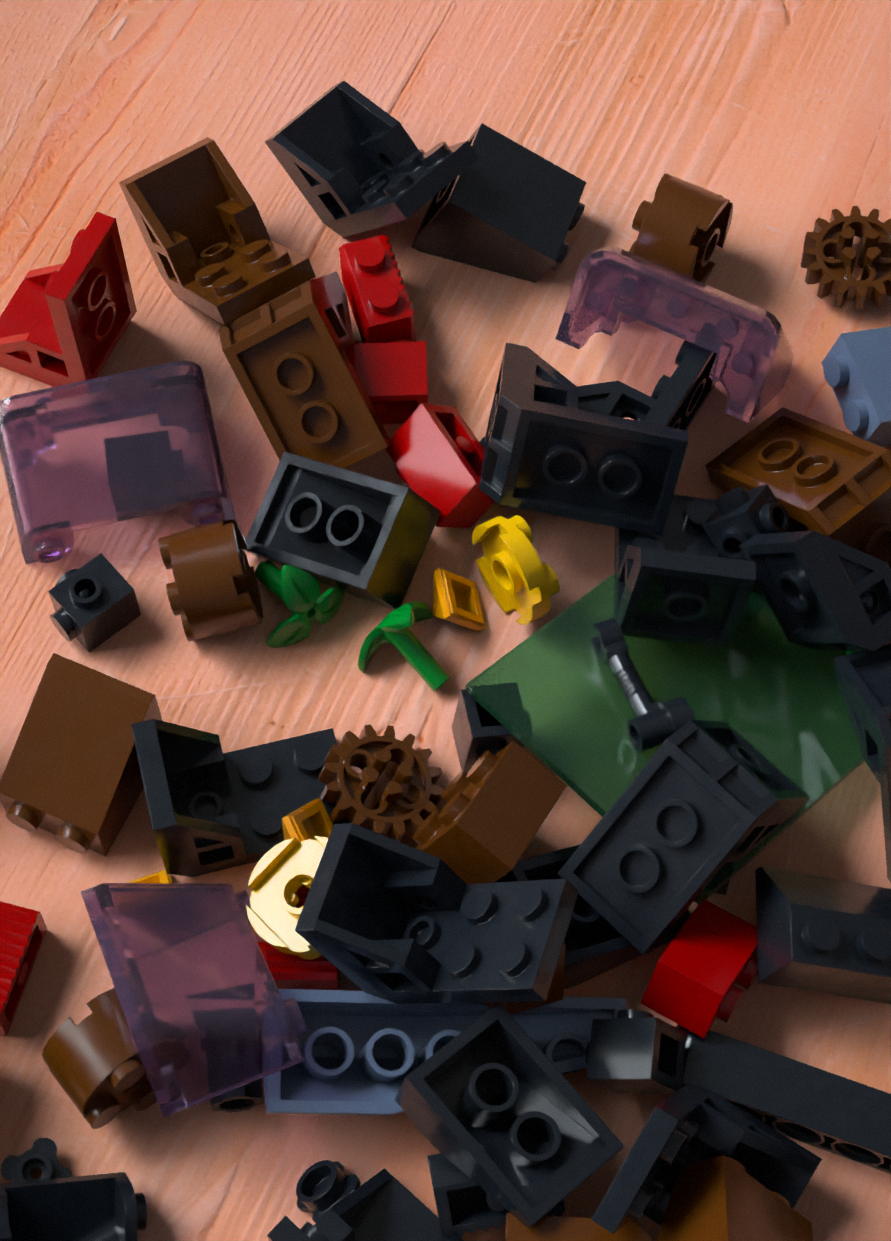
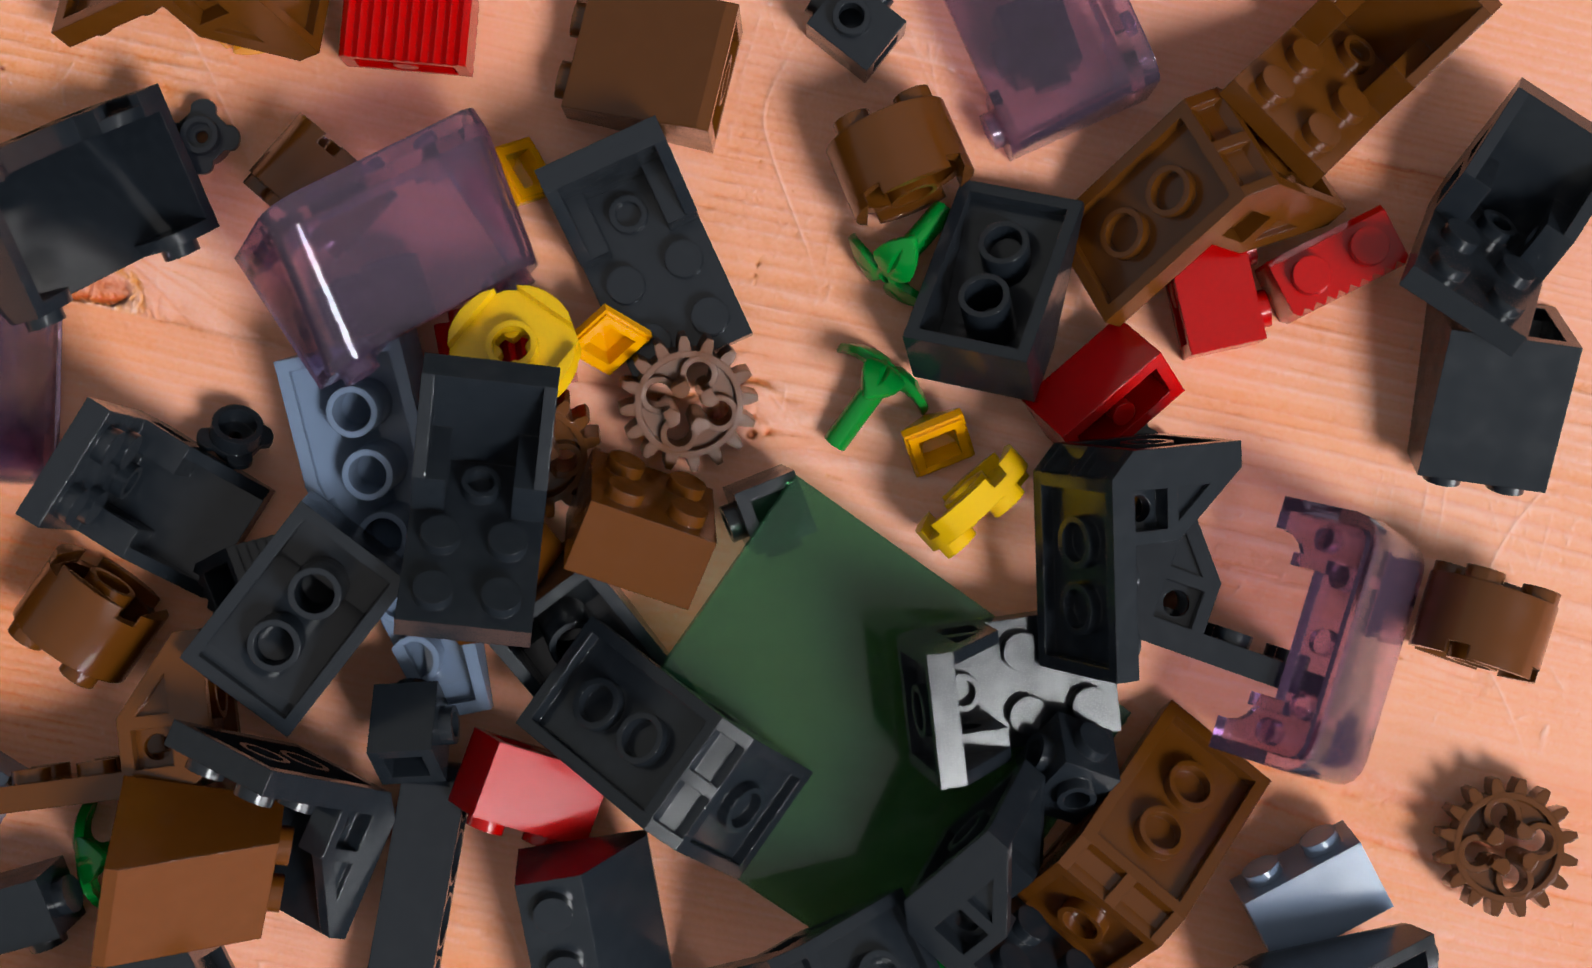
camera: 85 degrees right, 25 degrees up
(653, 720) = (789, 695): black brick -> none

